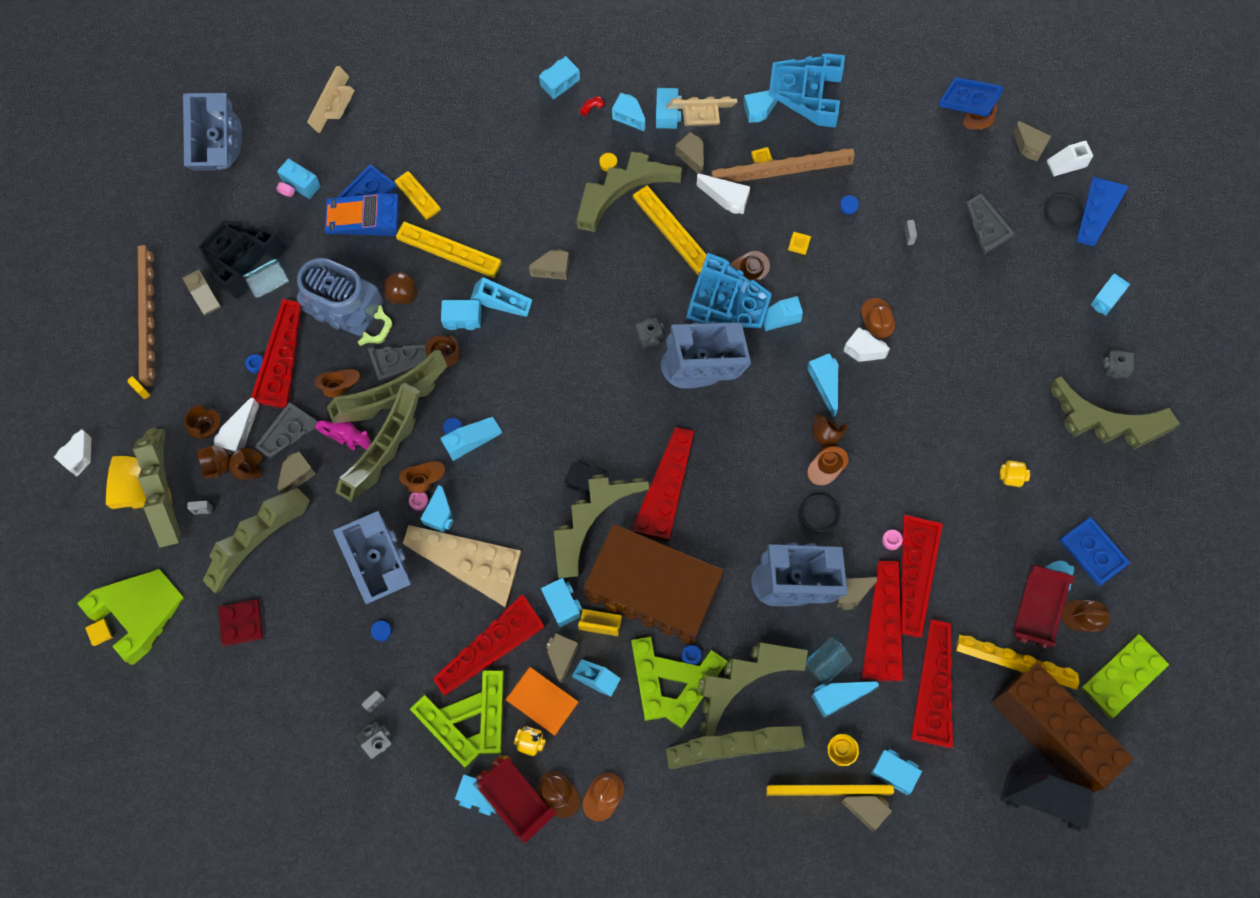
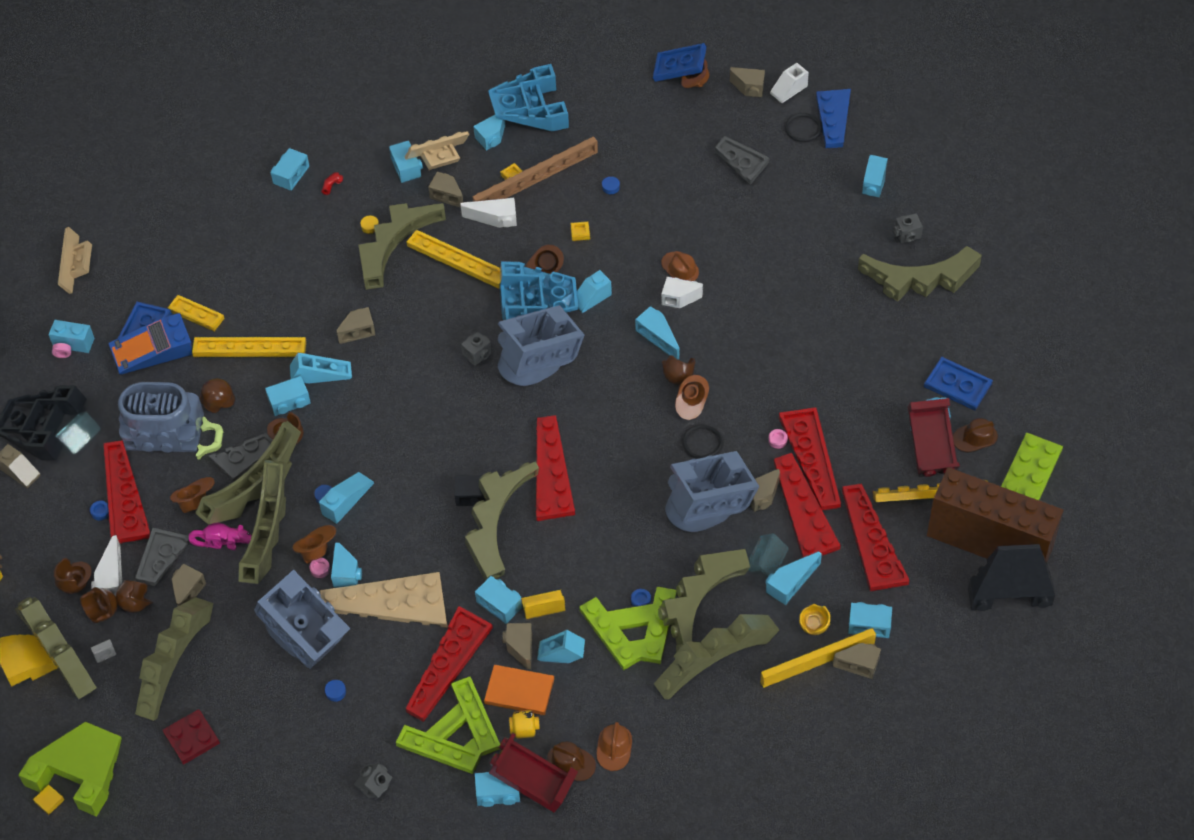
camera: 25 degrees left, 15 degrees down
(373, 701) = (356, 750): light grey tile -> none
(628, 112) = (370, 176): medium azure slope -> none
(653, 584) = (578, 549): reddish brown brick -> none
(910, 232) = (676, 188): light grey tile -> none
(1014, 473) = (859, 345): yellow head -> none

